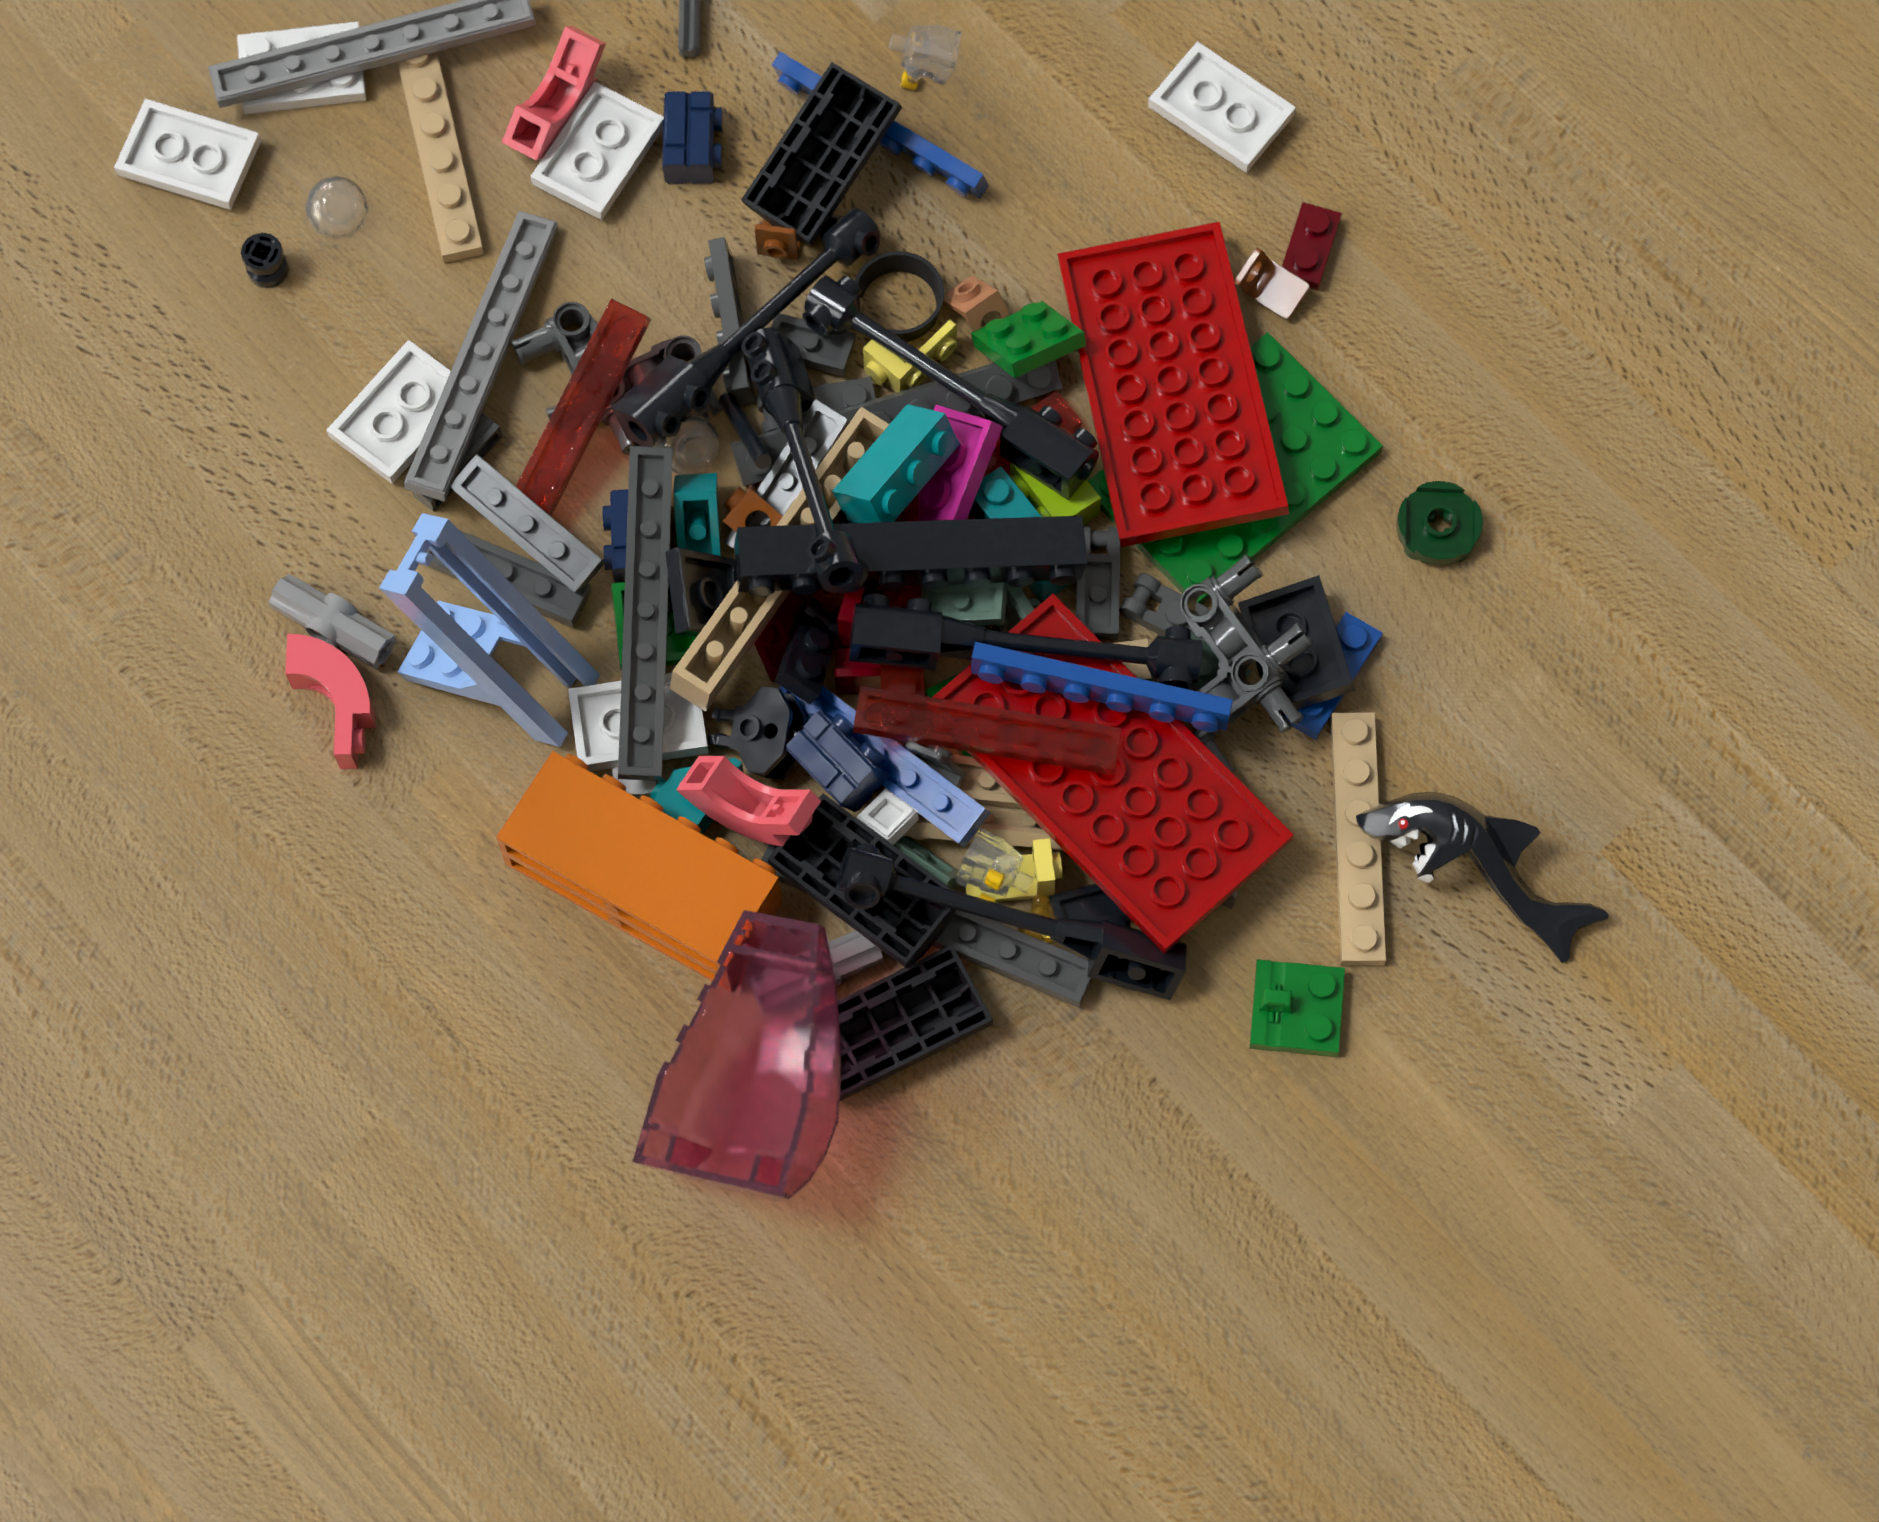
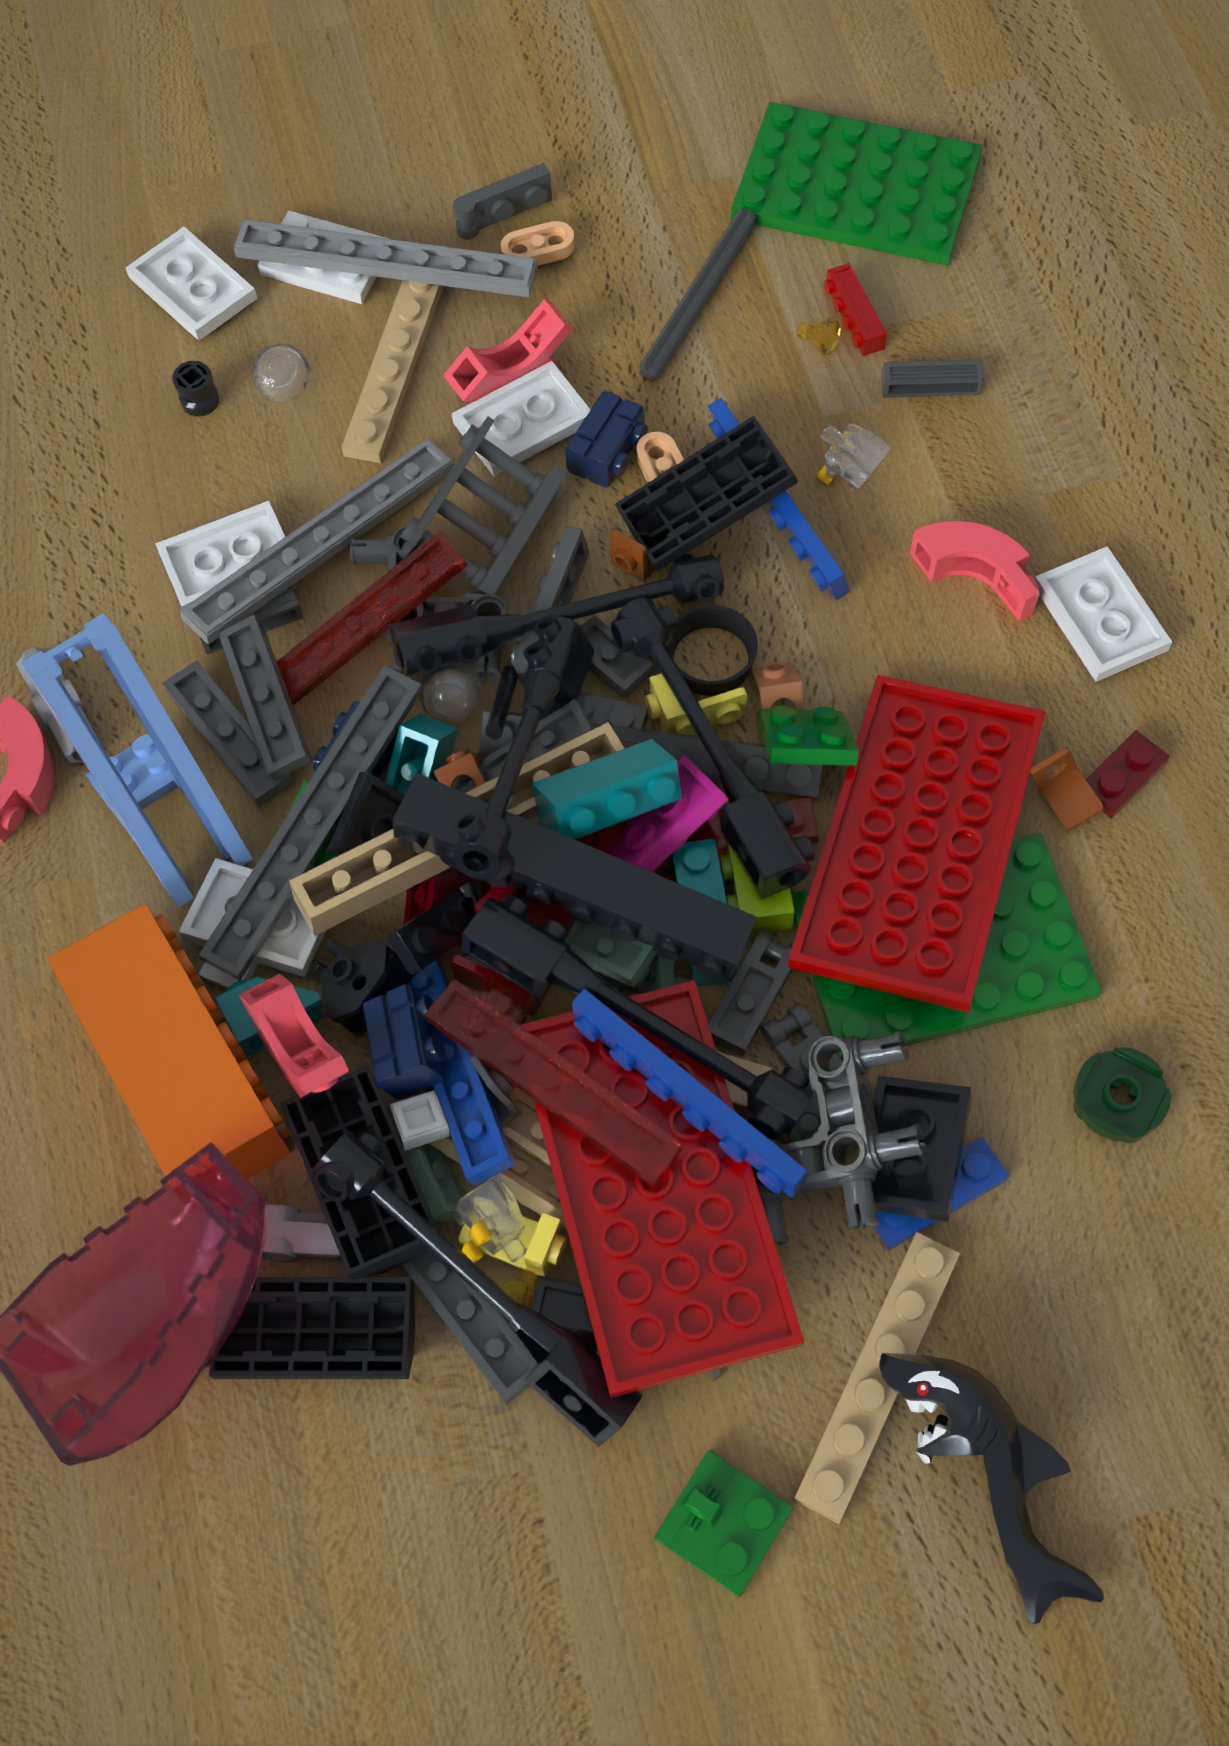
camera: 30 degrees right, 5 degrees down
(658, 249) = (520, 516): none -> dark grey fence
(760, 141) = (657, 445): none -> light nougat plate
(1090, 97) = (981, 553): none -> coral arch

